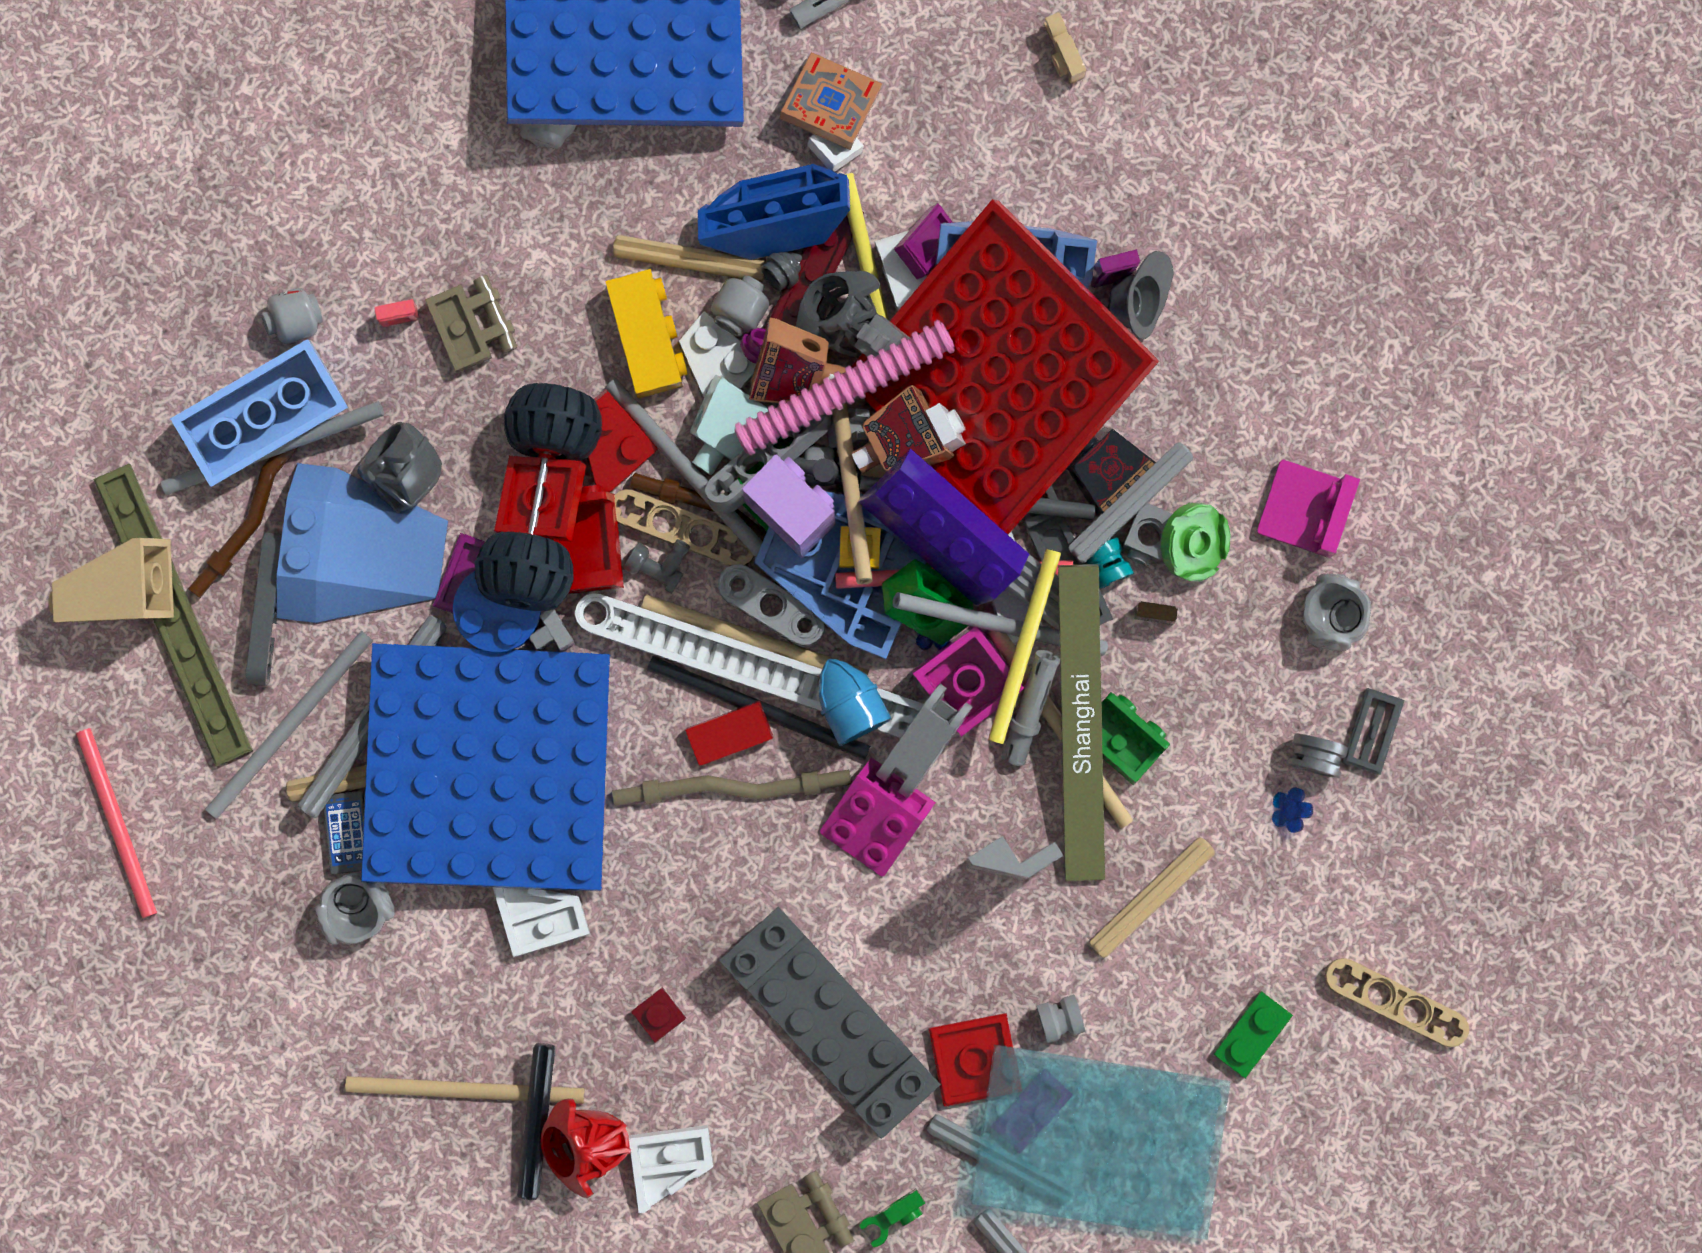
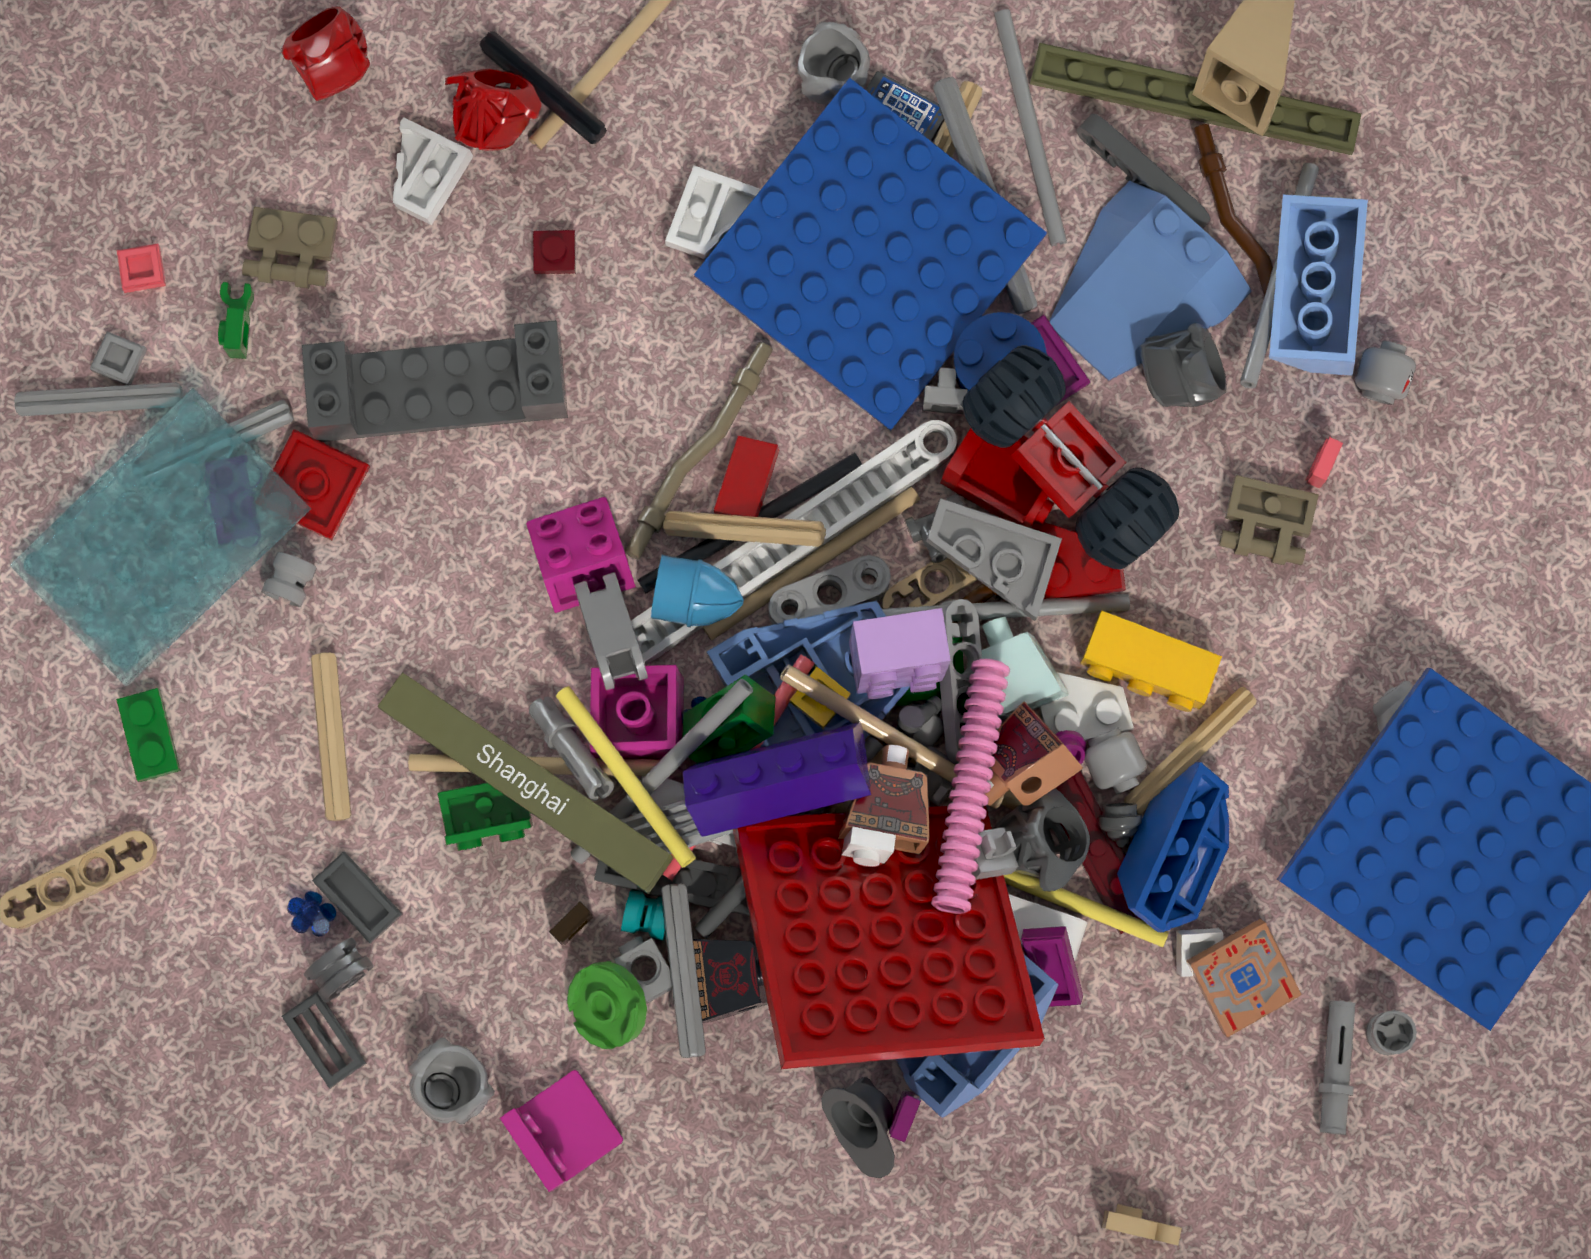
camera: 125 degrees right, 5 degrees down
(650, 501) = (996, 552): none -> light grey wing
(769, 704) = (744, 528): none -> tan axle
(1000, 860) = (450, 612): light grey slope -> none
(1254, 786) = (357, 897): none -> dark grey tile

